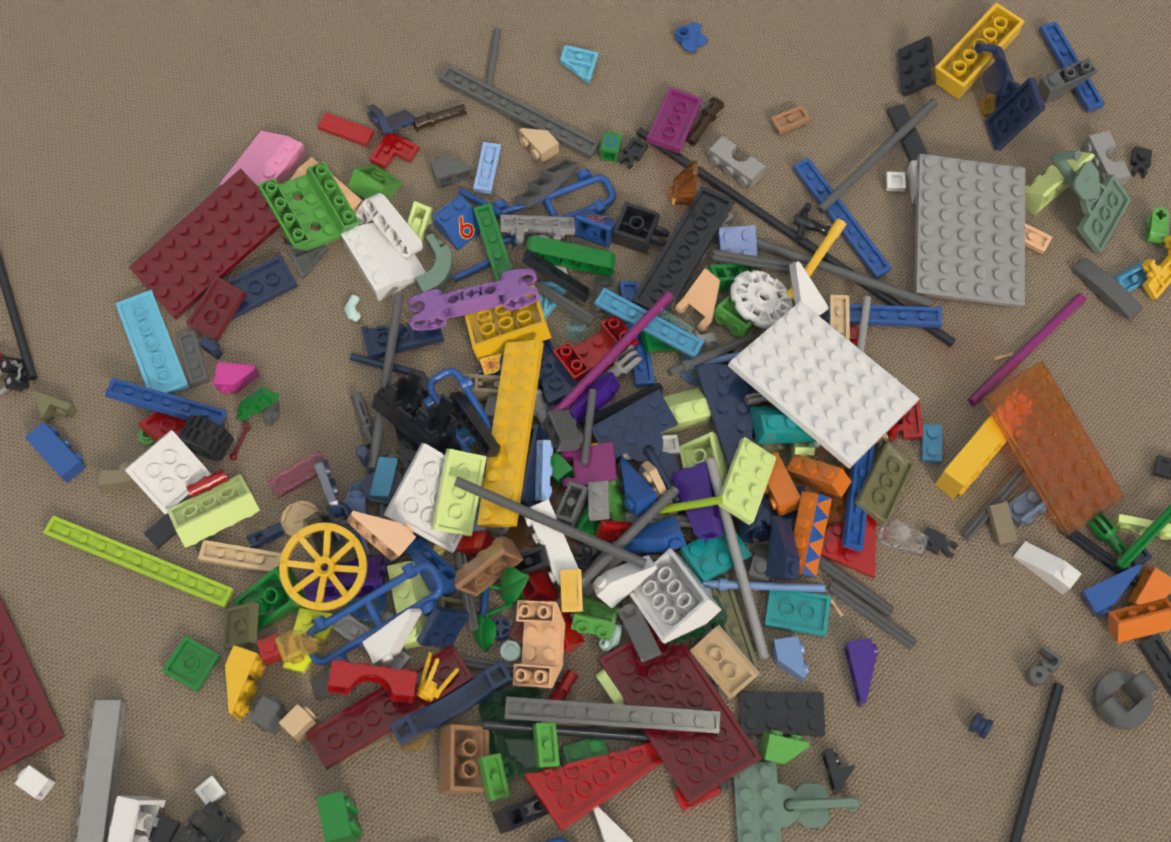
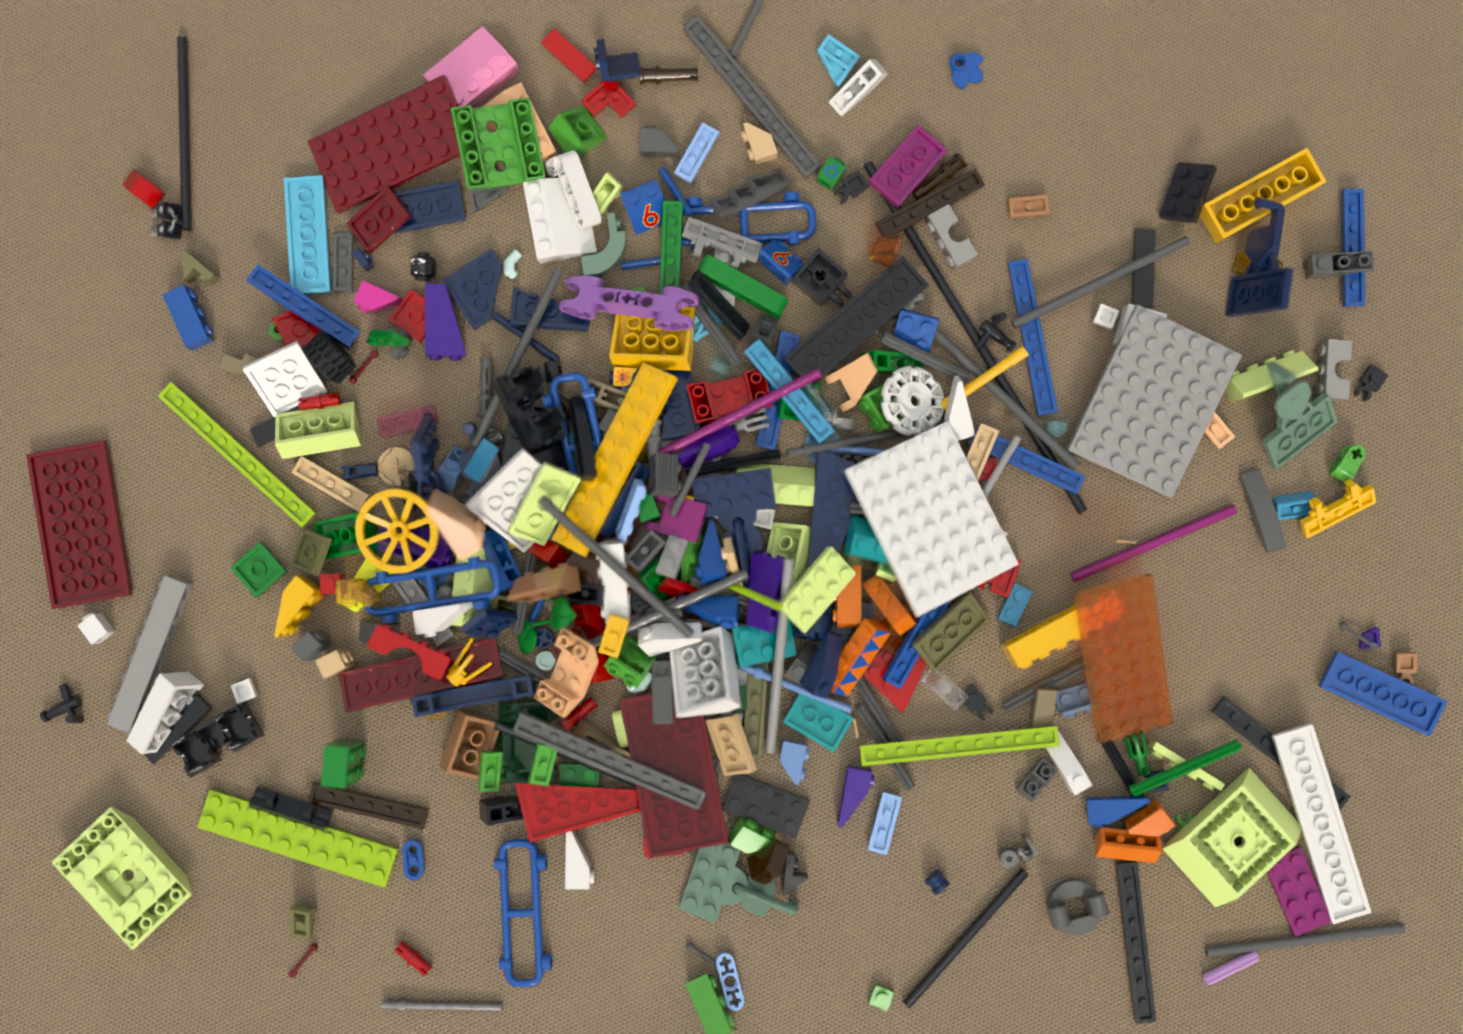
camera: 25 degrees right, 20 degrees up
(270, 335) = (423, 267): none -> black head
(278, 378) = (411, 315): none -> red tile
(304, 378) = (441, 327): none -> dark purple slope
(326, 338) = (476, 288): none -> dark blue plate
(607, 75) = (858, 86): none -> white slope
(700, 148) = (930, 203): none -> dark brown tile
(809, 764) = (768, 862): none -> dark brown slope
(897, 279) = (1056, 428): none -> clear light blue brick
(904, 687) = (884, 823): none -> light blue plate
(939, 584) = (959, 745): none -> lime plate
(1026, 593) = (1036, 779): none -> dark grey slope

